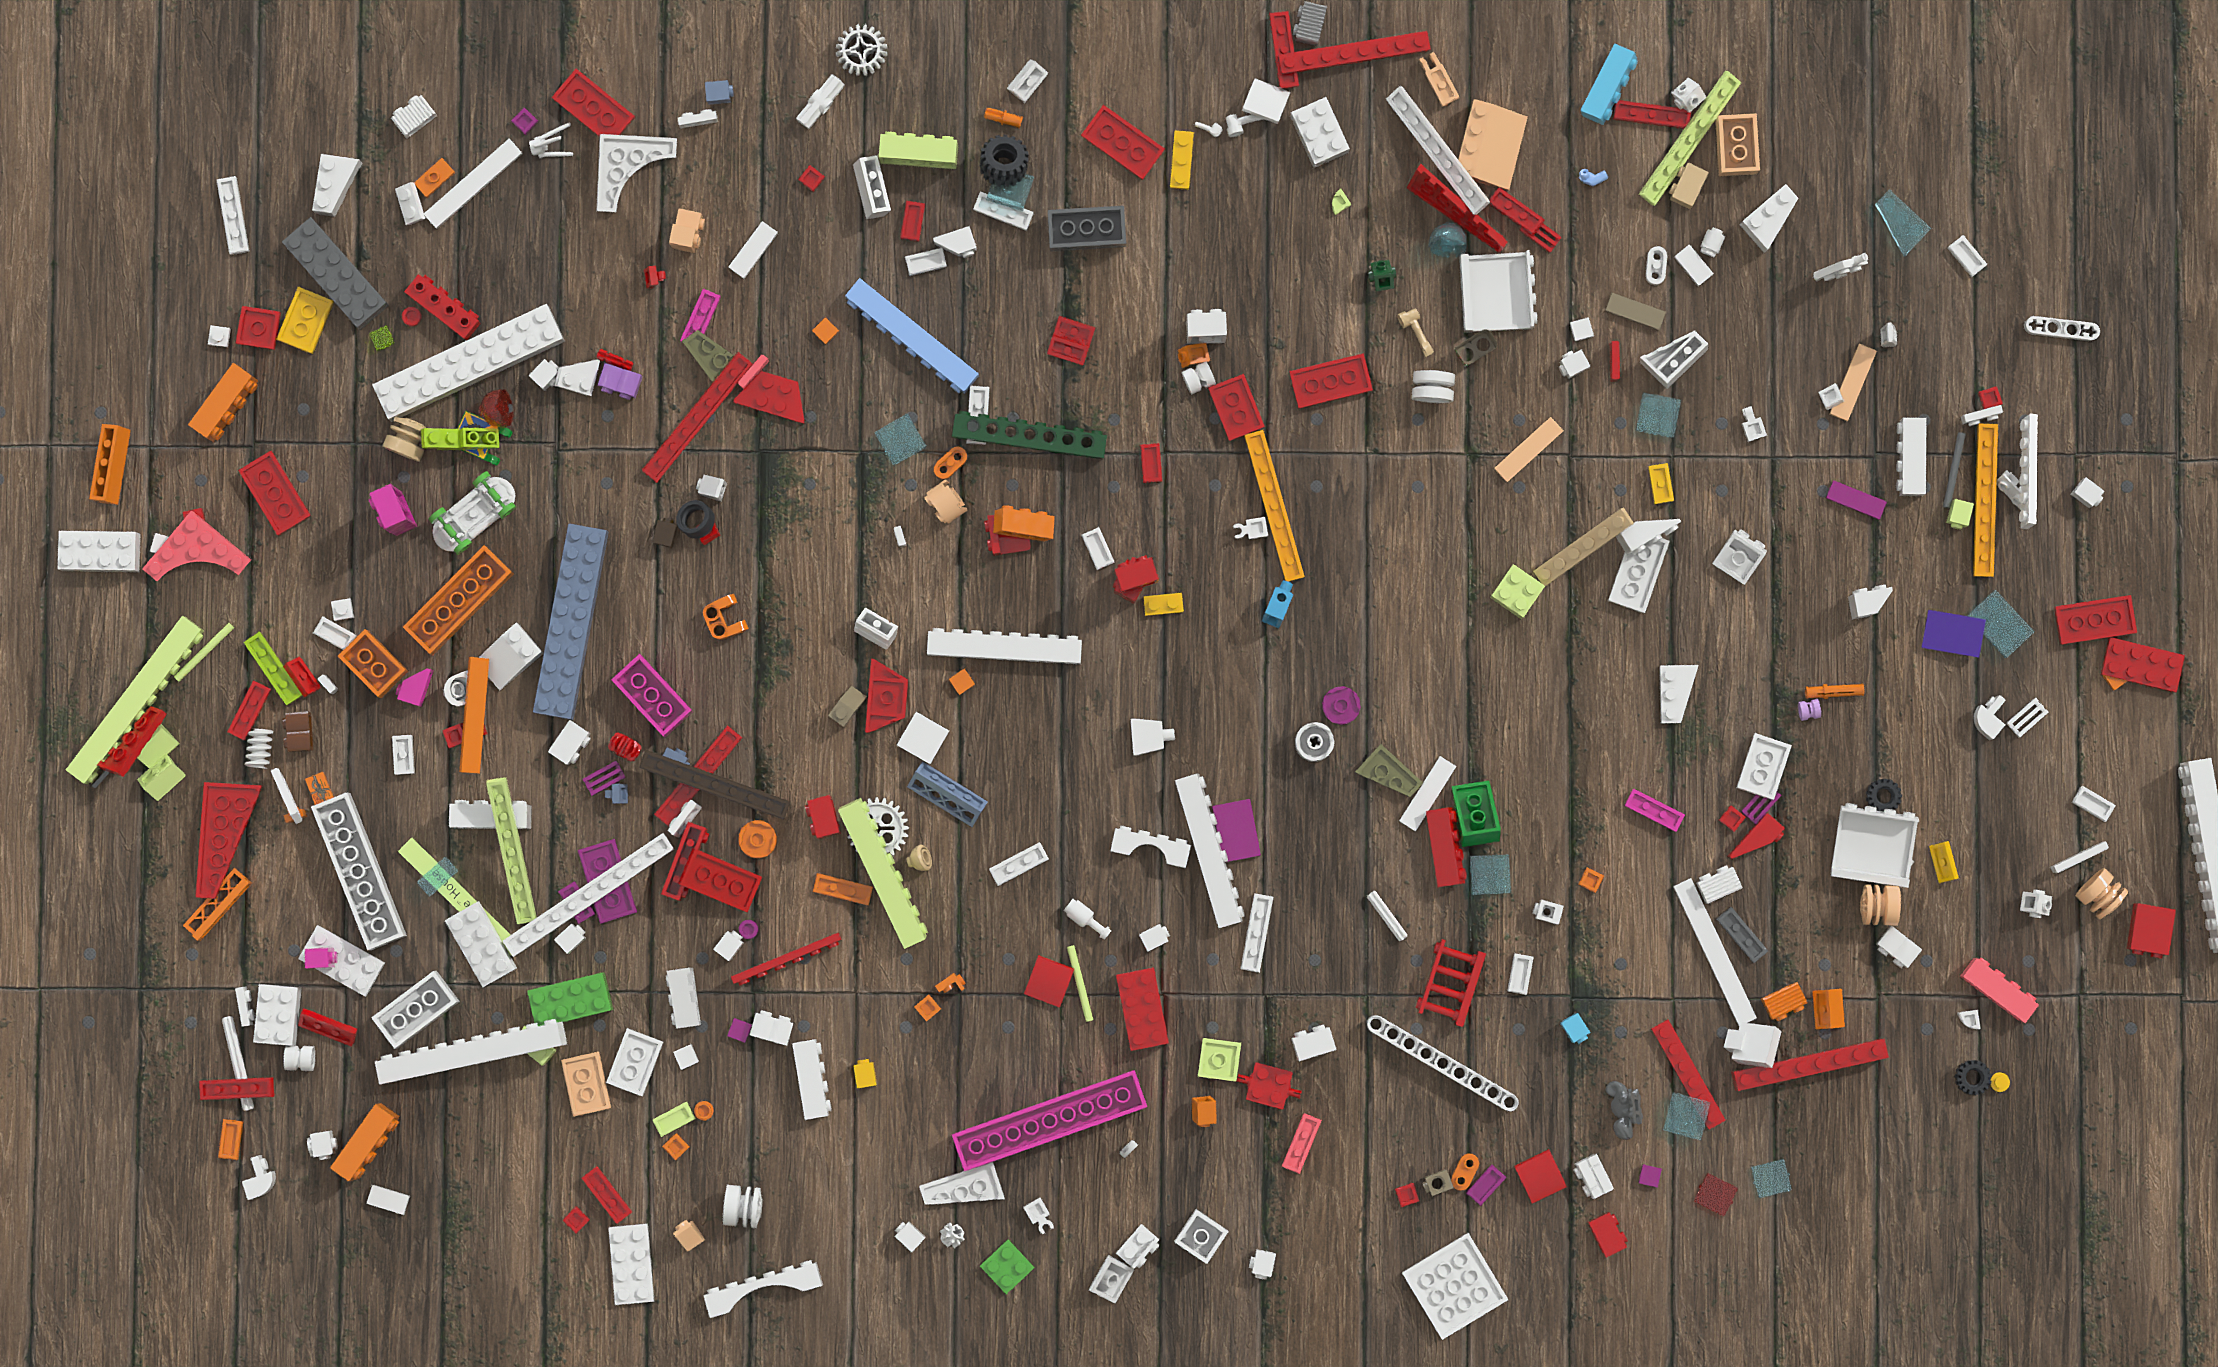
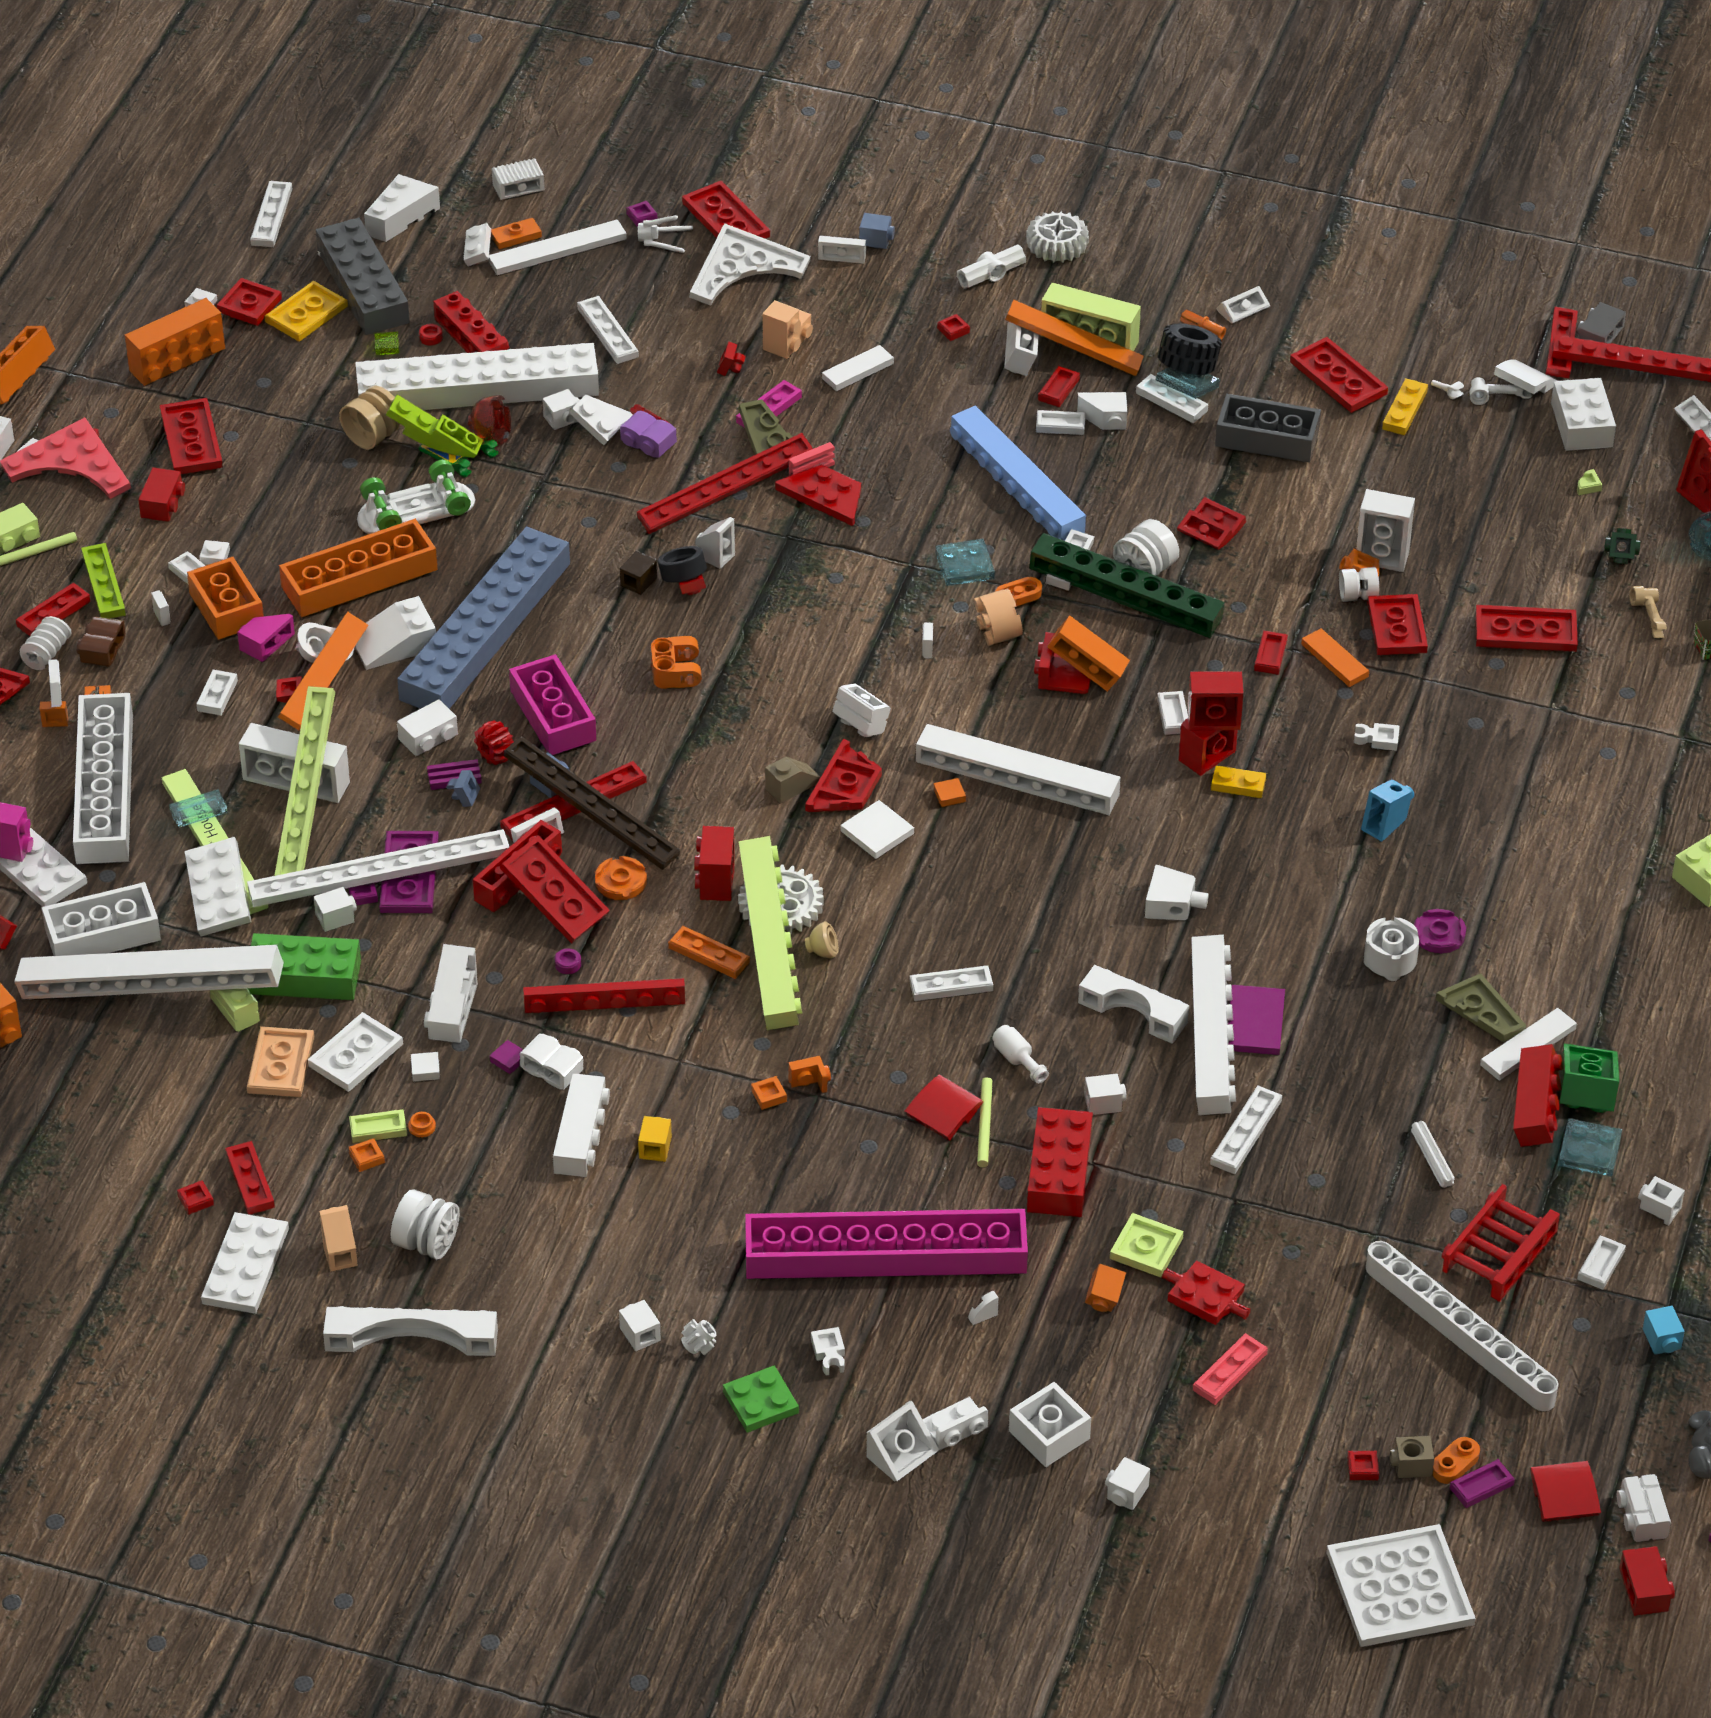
camera: 20 degrees right, 40 degrees down
(279, 565) = (161, 494): none -> red brick
(302, 676) = (133, 594): red plate -> none
(392, 510) = (322, 455): dark pink brick -> none
(546, 266) = (607, 329): none -> white tile
(729, 945) = (535, 965): white brick -> none
(825, 330) = (914, 451): orange tile -> none
(912, 176) = (1074, 337): none -> orange tile
(949, 791) = (892, 885): sand blue fence -> none
(966, 1186) = (741, 1292): white wing -> none
(1034, 400) = (1148, 547): none -> white wheel
(1199, 454) = (1335, 657): none -> orange tile
(1274, 506) = (1415, 721): light orange plate -> none
(1313, 1043) = (1285, 1249): white brick -> none
(1433, 386) = (1657, 650): white wheel -> none

